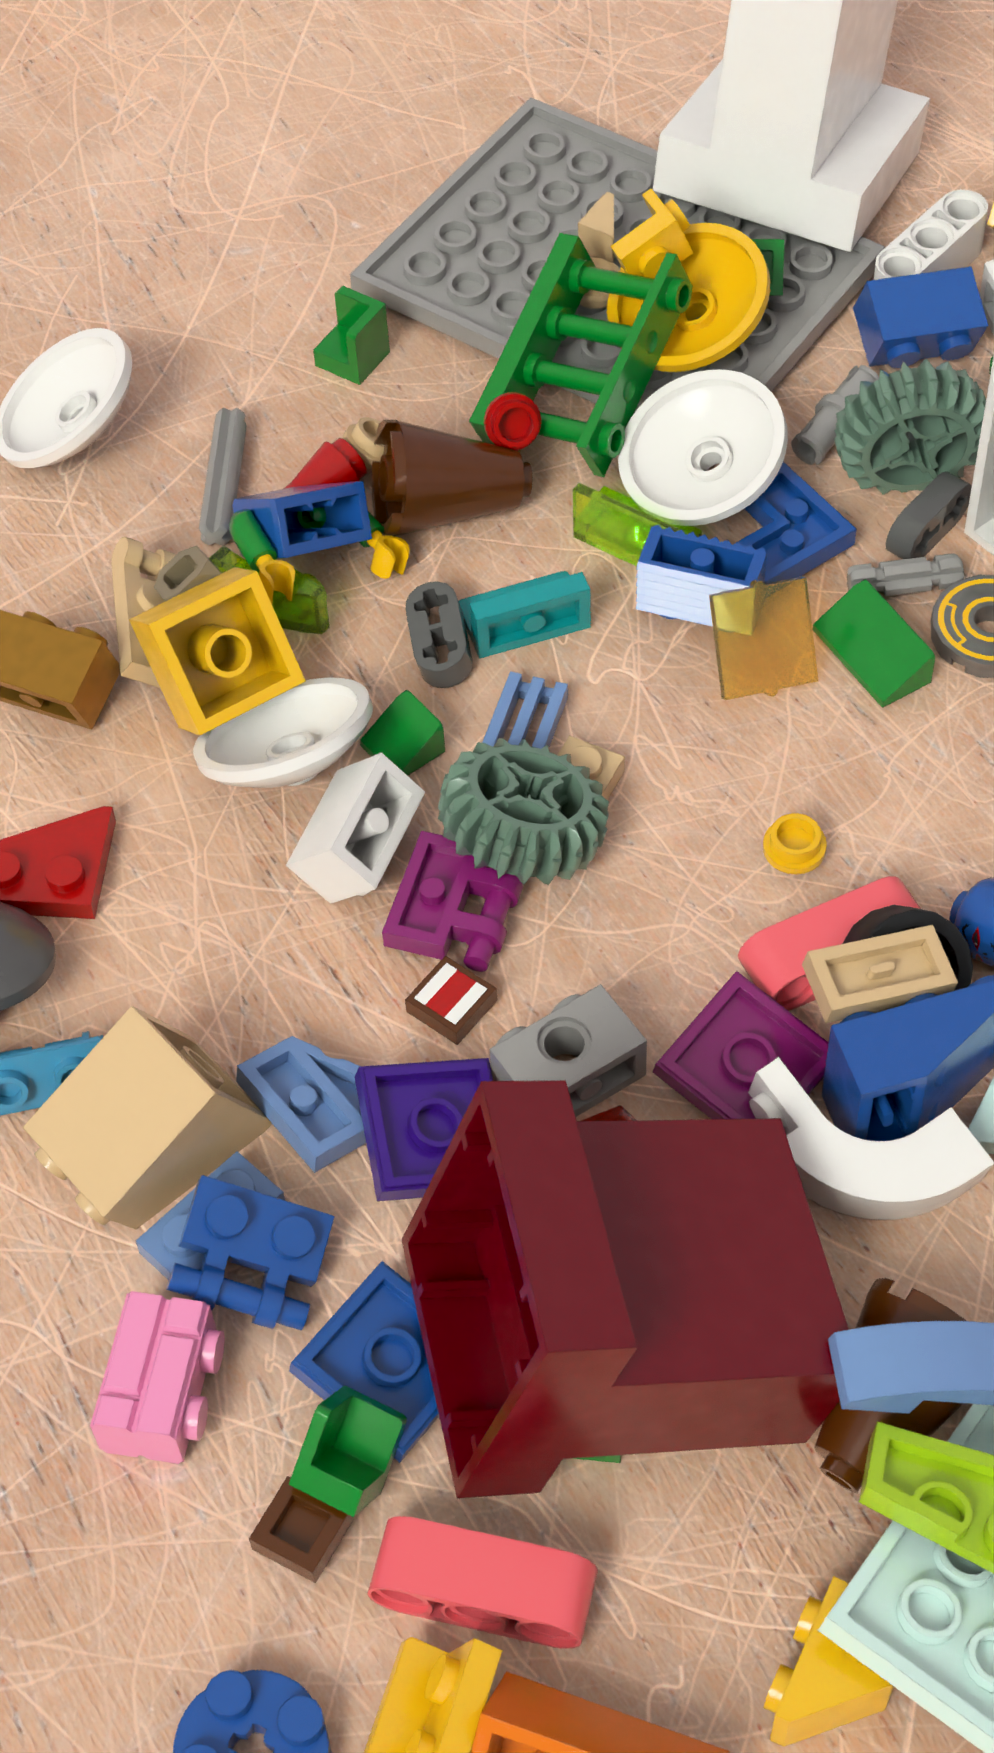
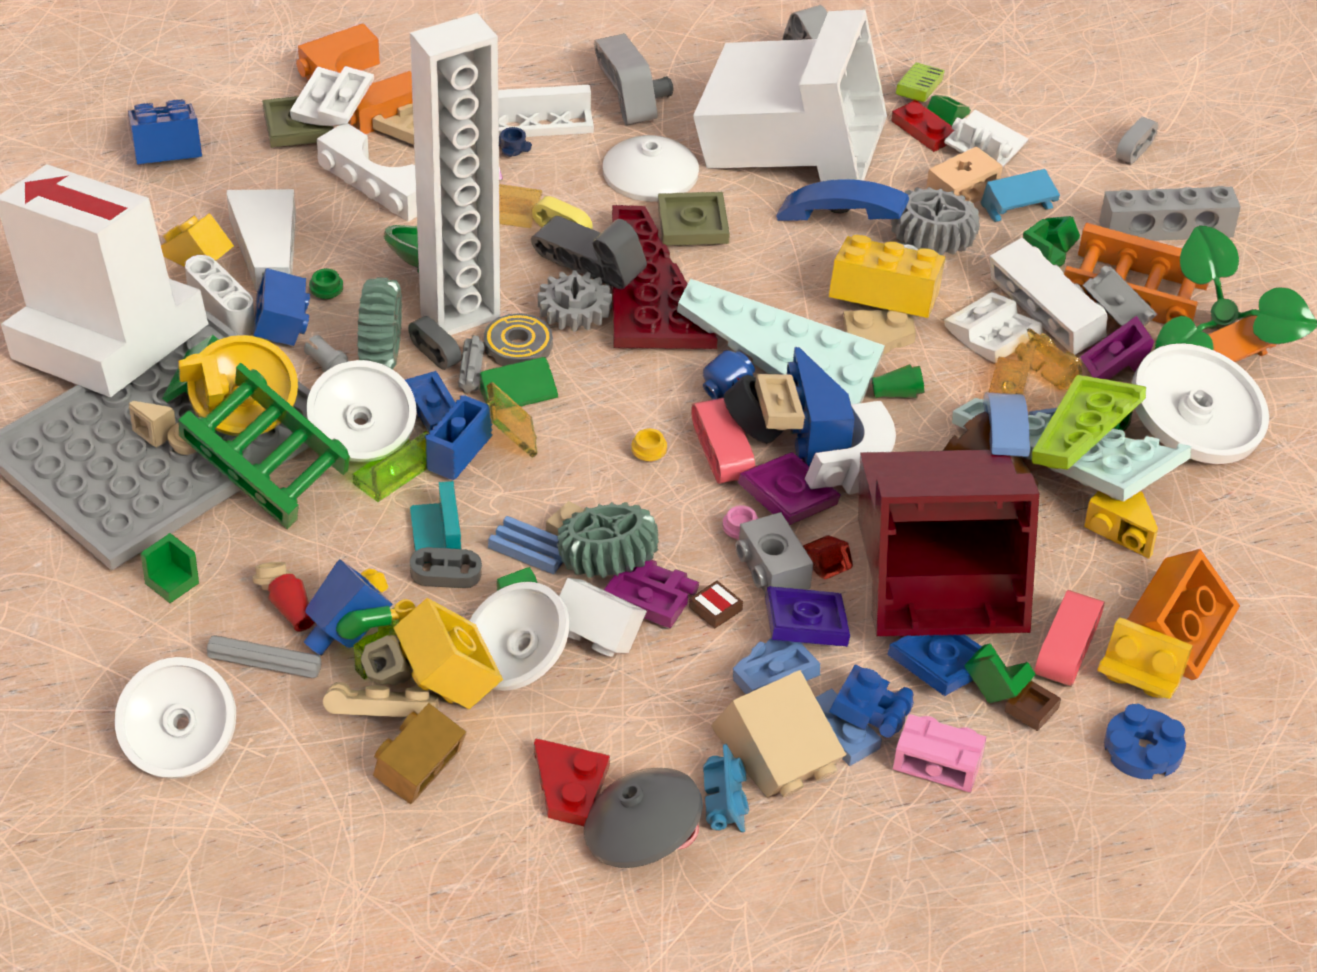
camera: 85 degrees left, 10 degrees down
(442, 478) = (323, 539): reddish brown cone -> none
(512, 421) = (306, 488): red plate -> none
(649, 1003) = (735, 517): none -> bright pink plate

